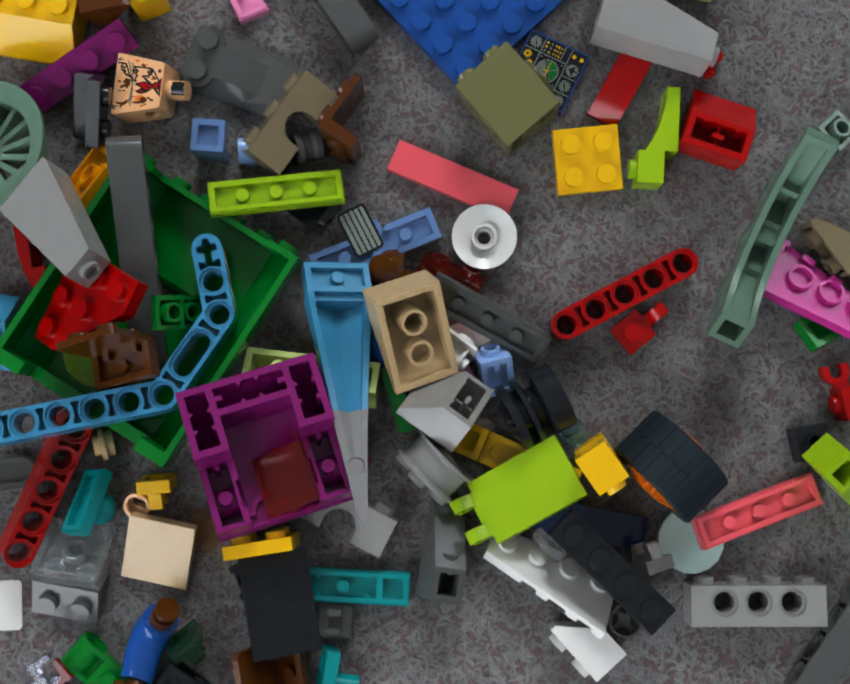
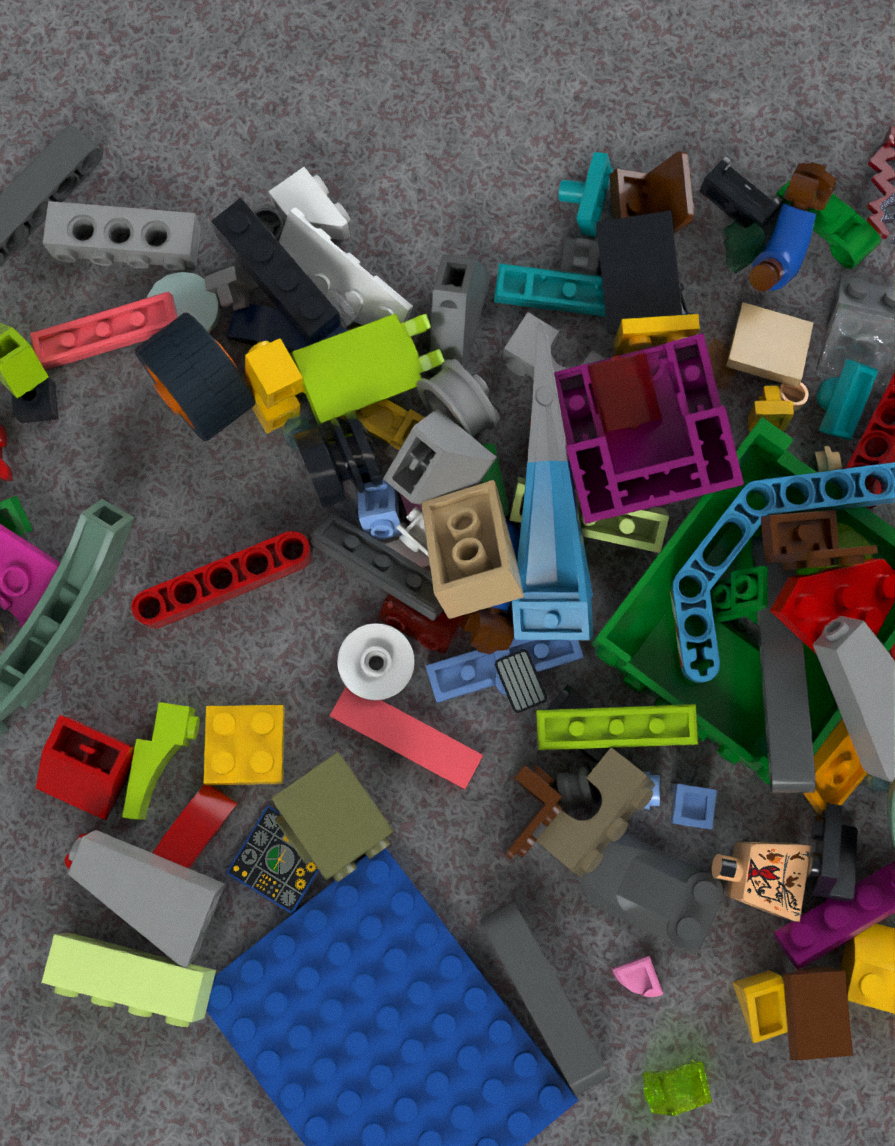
camera: 175 degrees left, 5 degrees down
(635, 329) = (212, 541): red plate -> none

